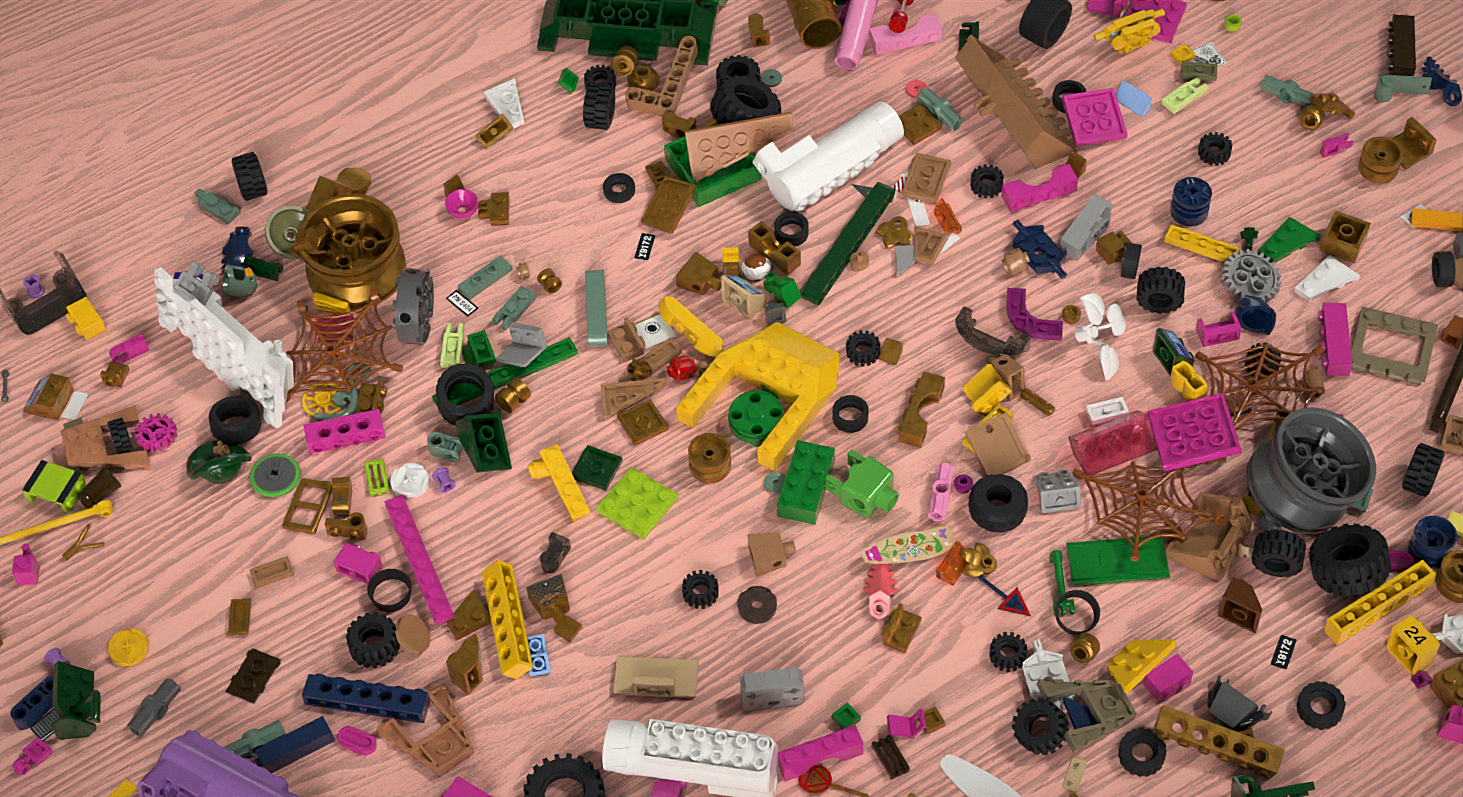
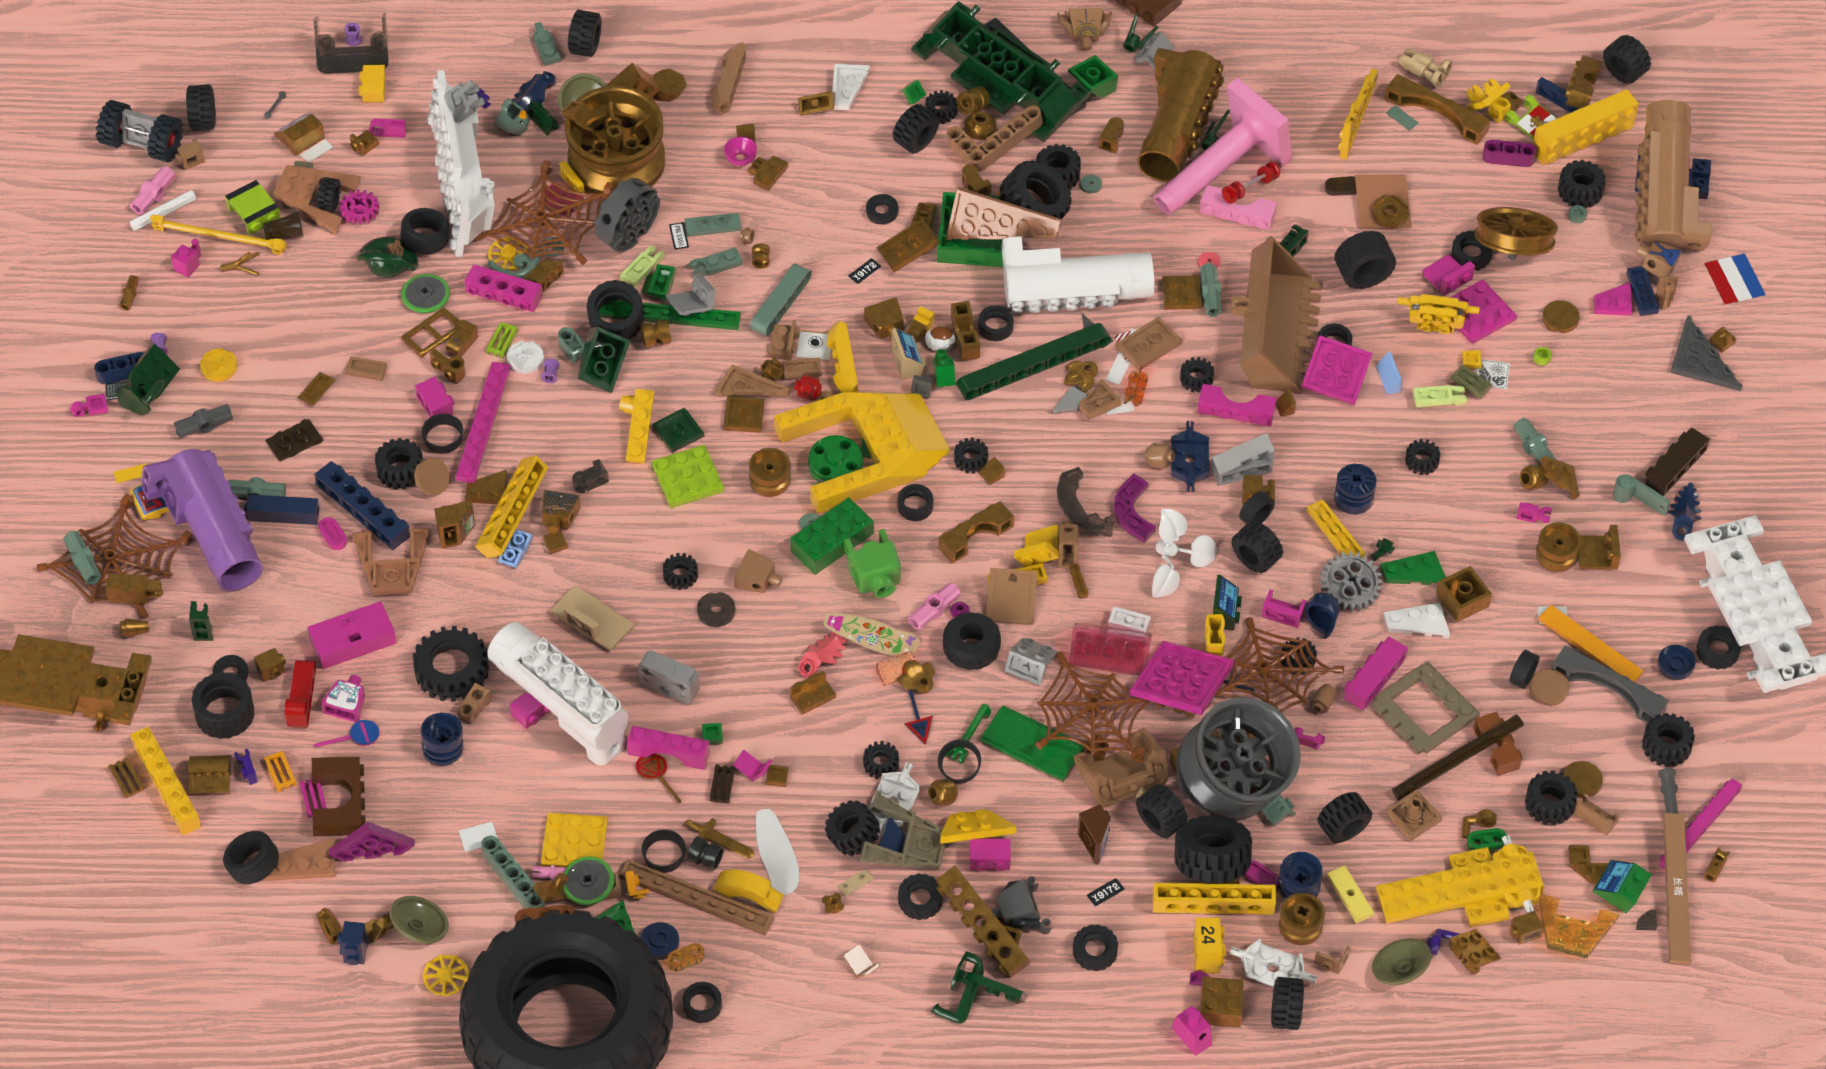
camera: 30 degrees right, 0 degrees up
(406, 161) = (732, 67): none -> medium nougat brick
(859, 261) = (1031, 382): medium nougat tile -> none

